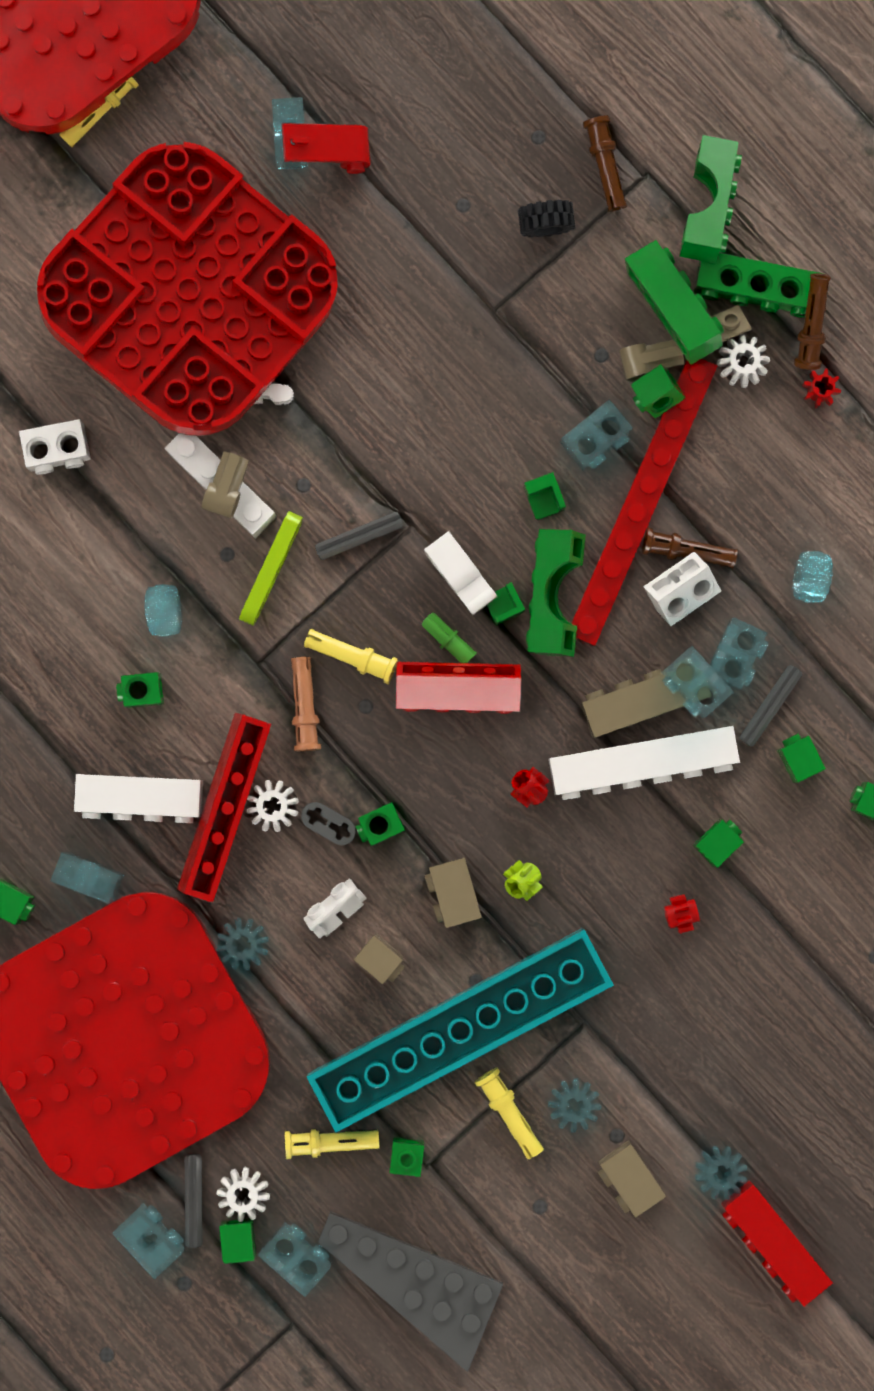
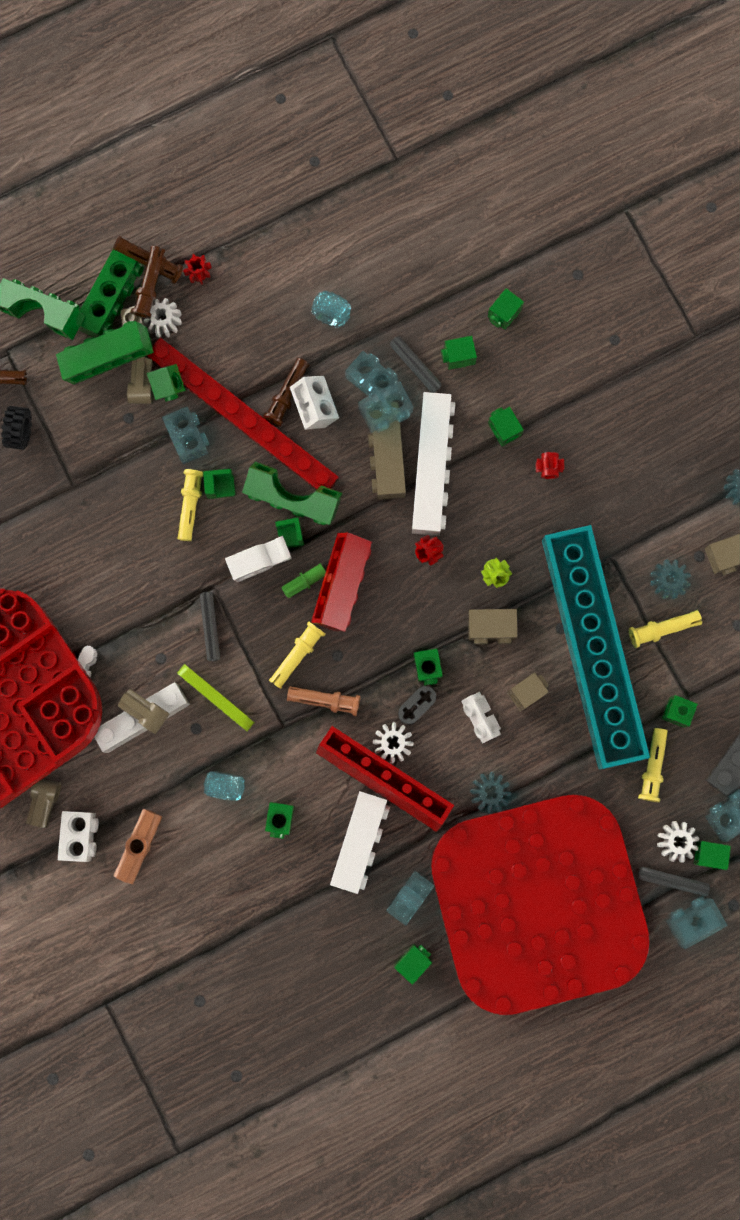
camera: 70 degrees left, 5 degrees down
(43, 522) = (132, 861): none -> nougat piece
(88, 391) = (43, 797): none -> dark tan piece
(522, 464) = (191, 495): none -> light yellow pin
(766, 333) = (146, 293): none -> reddish brown pin

